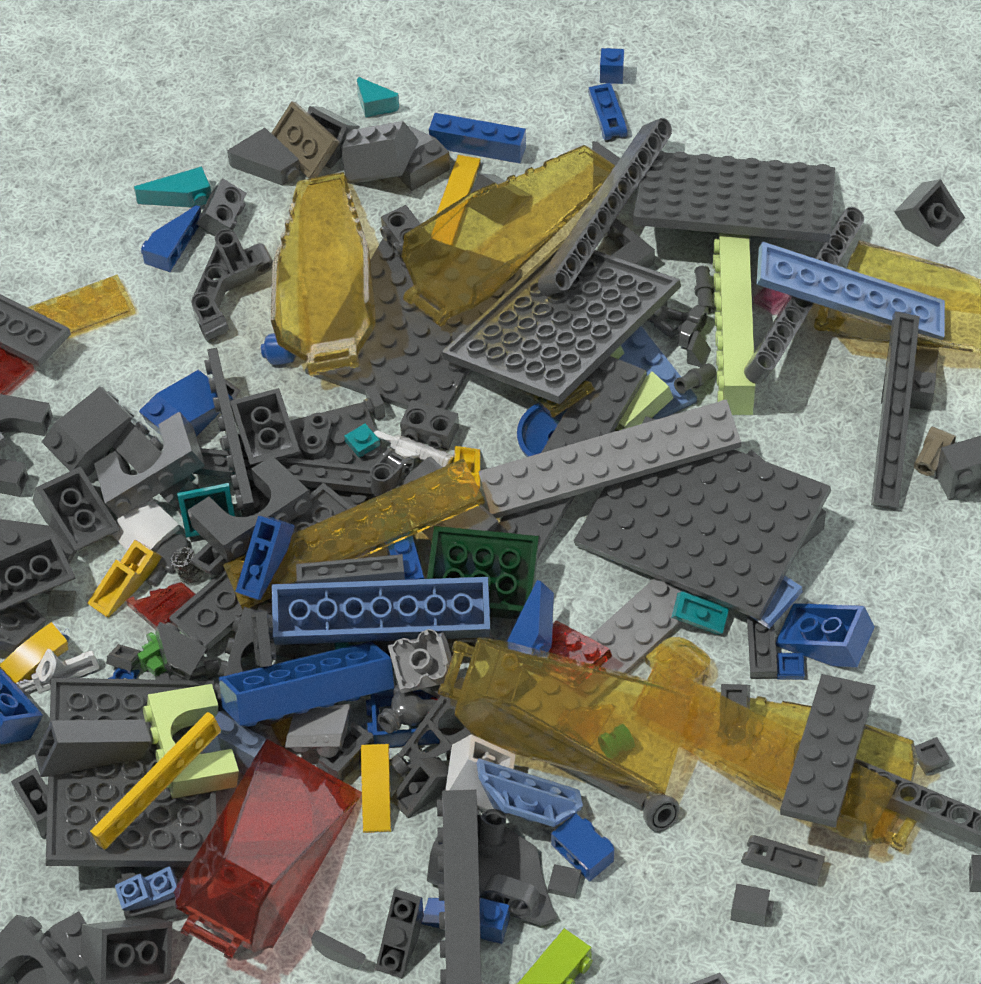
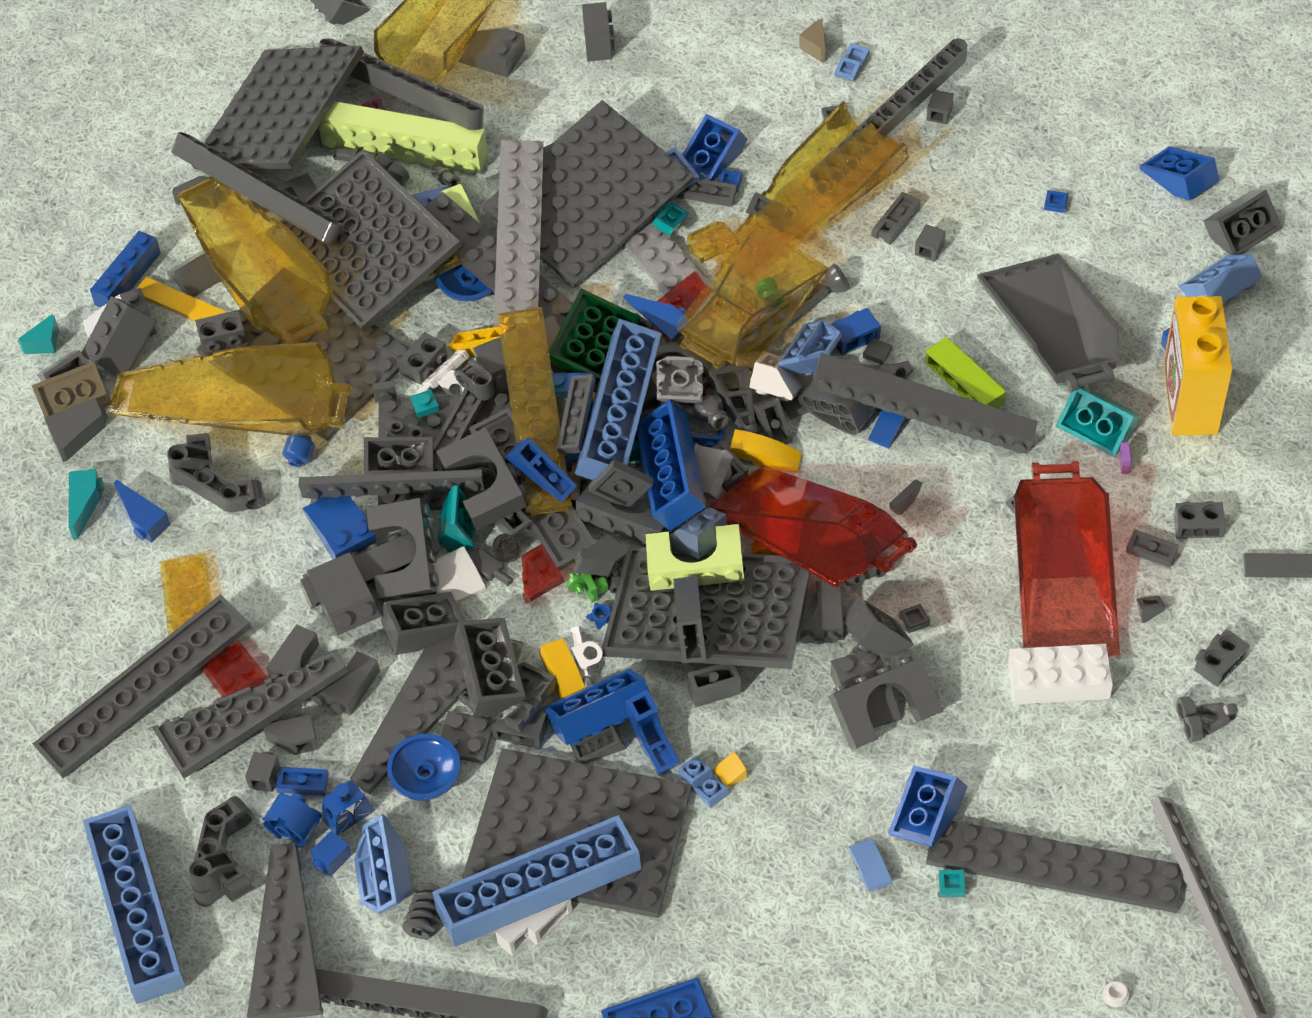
camera: 75 degrees left, 0 degrees up
(123, 657) = (583, 608): dark grey tile -> none
(124, 578) = (502, 597): yellow slope -> none
(147, 891) = (824, 608): medium blue slope -> none
(155, 781) = (743, 570): yellow tile -> none
(223, 203) = (123, 466): dark grey brick -> none
(400, 933) = (901, 453): dark grey slope -> none
(607, 111) = (134, 180): blue plate -> none
(611, 65) = (88, 165): blue brick -> none
(698, 350) = (415, 174): dark grey slope -> none
(828, 750) = (833, 152): dark grey plate -> none
(846, 289) = (414, 54): medium blue plate -> none
(895, 410) = (532, 56): dark grey plate -> none
(929, 456) = (564, 50): dark tan piece -> none

